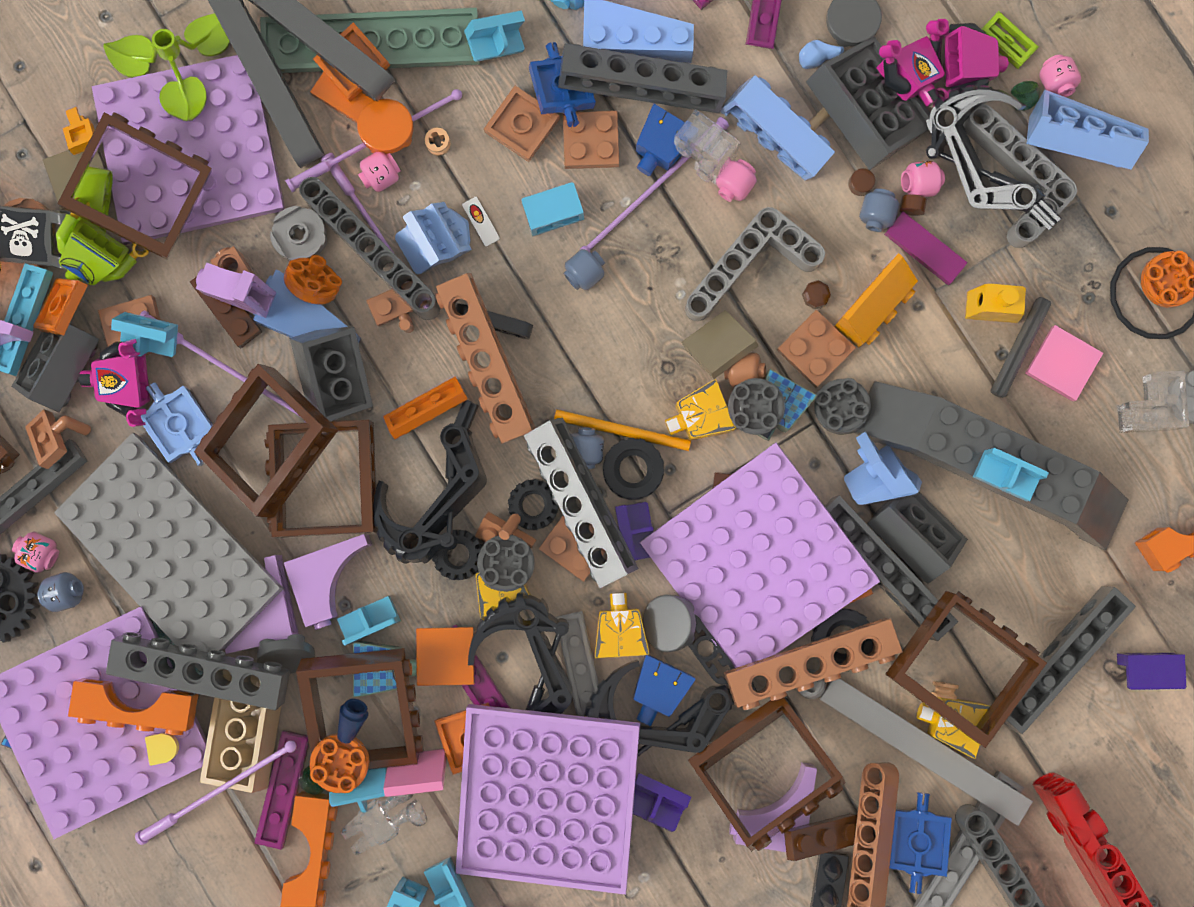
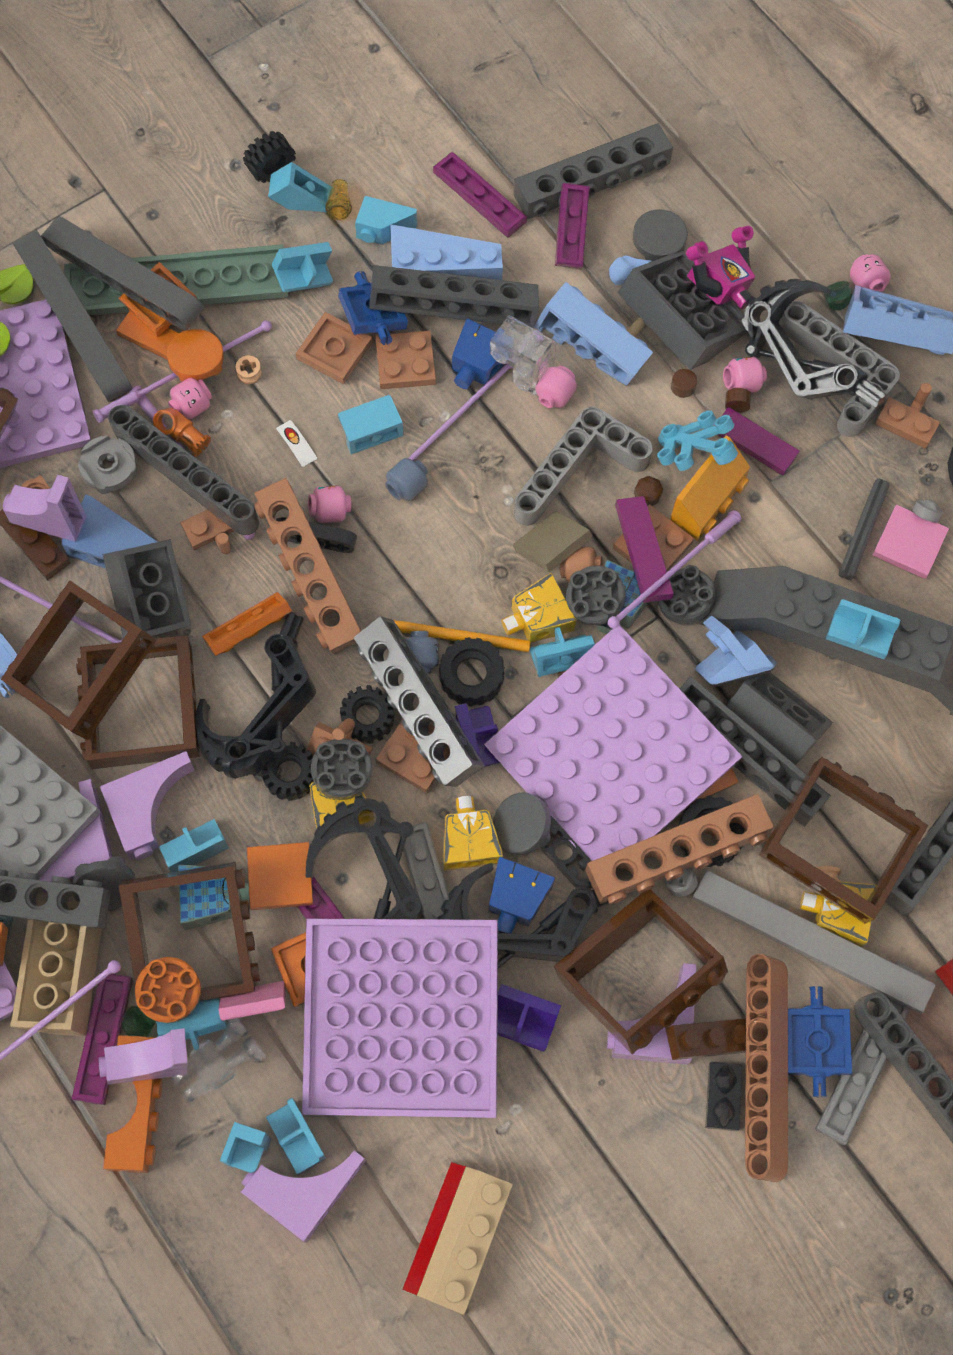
camera: 10 degrees left, 15 degrees down
(312, 280) = (123, 503): orange tile -> none
(318, 828) = (146, 1059): none -> lavender arch
(351, 719) = (180, 937): dark blue cone -> none
(370, 205) = (182, 431): none -> orange connector
(433, 237) = (248, 456): light blue piece -> none
(508, 291) = (329, 504): none -> bright pink head
(719, 456) = (561, 654): none -> medium azure panel
(806, 360) = (643, 547): none -> magenta tile
(849, 240) = (676, 435): none -> medium azure plant
(879, 210) = (702, 399): sand blue head -> none
(894, 329) = (712, 536): none -> lavender piece
(970, 57) = (778, 259): dark pink torso -> none
(999, 303) = (833, 485): yellow torso -> none
(1006, 43) = (812, 250): lime tile -> none
(1078, 236) = (909, 421): none -> nougat plate
(1085, 334) = (928, 510): none -> light grey tile

